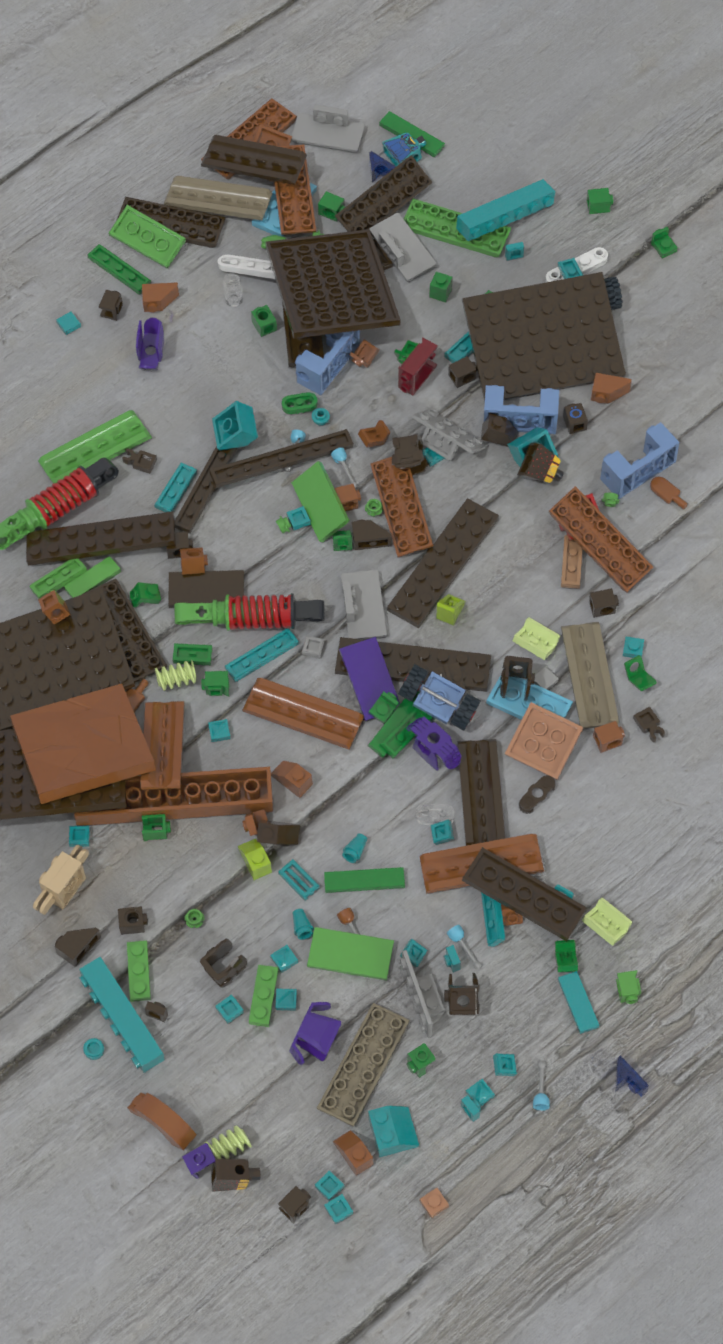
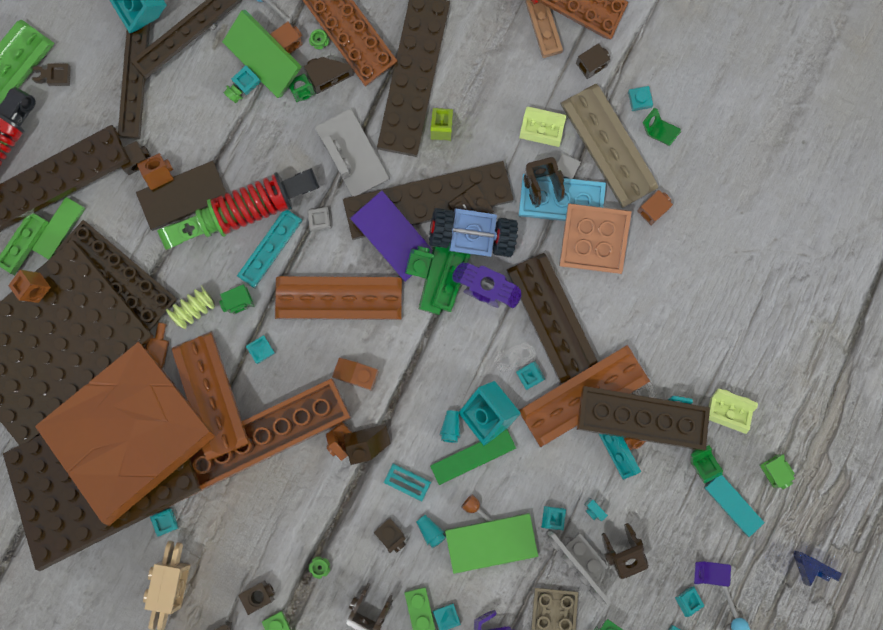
camera: 25 degrees left, 20 degrees up
(145, 594) = (121, 226): green bracket -> none
(151, 821) = (232, 487): green window -> none
(175, 488) = (104, 92): teal tile -> none
(192, 652) = (198, 275): green plate -> none
(255, 859) = (353, 478): lime slope -> none
(266, 916) = (391, 536): none -> dark brown bracket
(284, 958) = (427, 574): teal tile -> none
(393, 845) = (489, 412): none -> teal slope
(457, 934) = (588, 481): hinge -> none
(528, 801) = (603, 308): dark brown piece -> none
(533, 1048) = (712, 573): none -> dark purple bracket
(649, 722) = (686, 175): dark brown plate -> none

